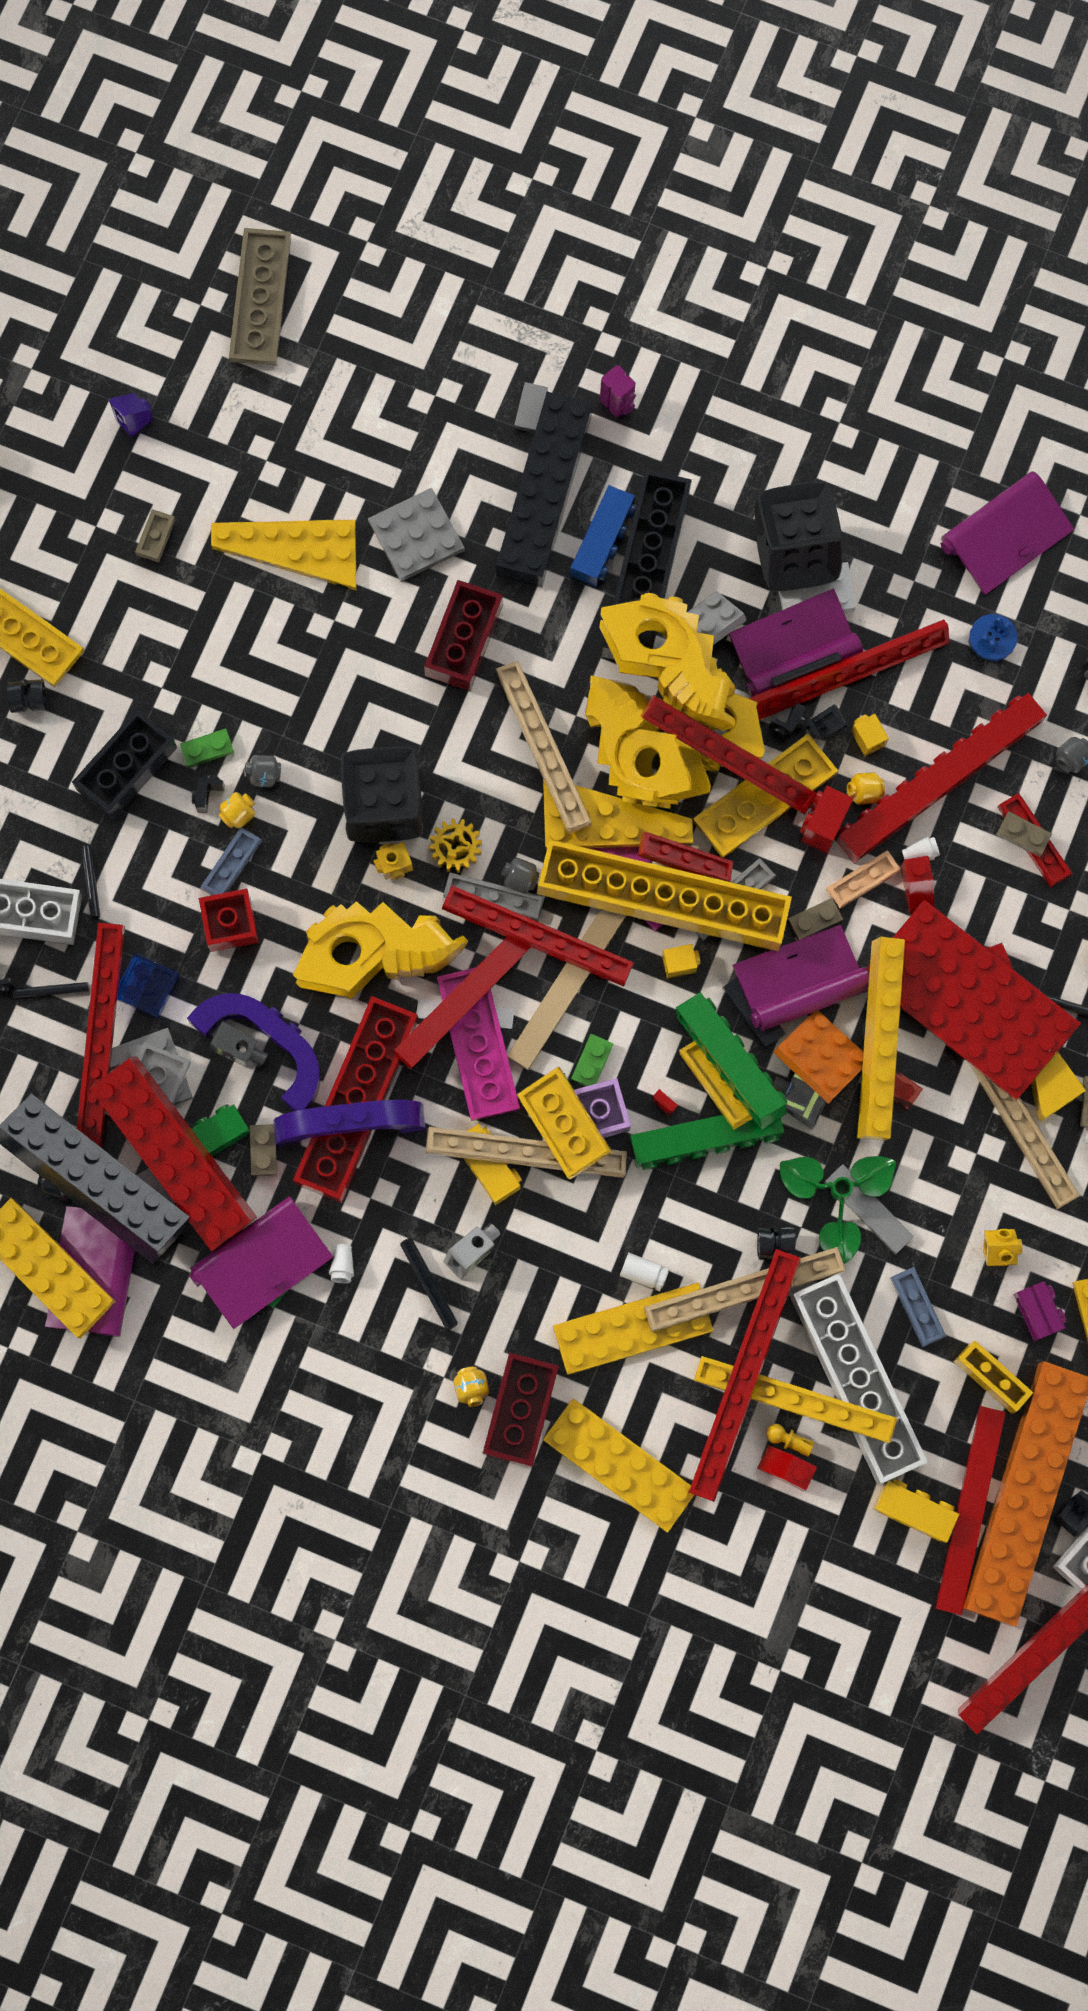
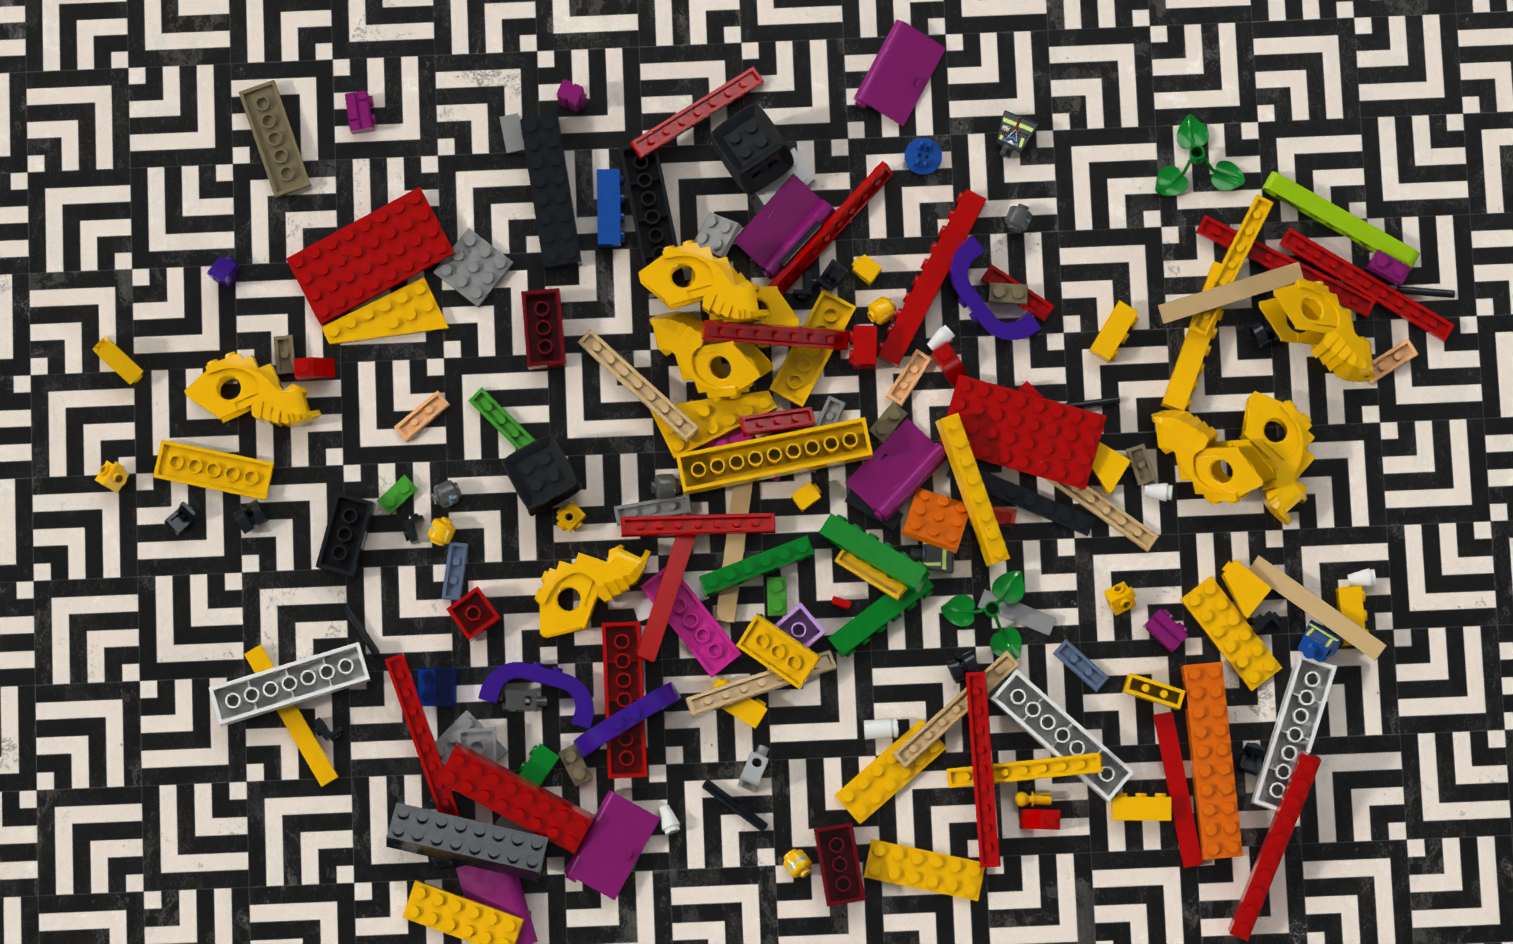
camera: 20 degrees left, 5 degrees up
(51, 990) = (371, 720): black bar -> none
(103, 563) = (259, 393): none -> yellow animal
(180, 564) = (314, 368): none -> red slope
(277, 673) = (422, 416): none -> light nougat tile
(305, 469) = (370, 256): none -> red plate
(364, 710) = (500, 419): none -> bright green tile
(369, 309) = (360, 112): none -> magenta brick
(446, 842) = (610, 493): yellow gear -> none
(584, 1014) = (756, 566): none -> green brick
(752, 472) = (696, 112): none -> red tile
(947, 1091) = (1034, 503): none -> black plate
(980, 828) = (969, 298): none -> dark purple arch

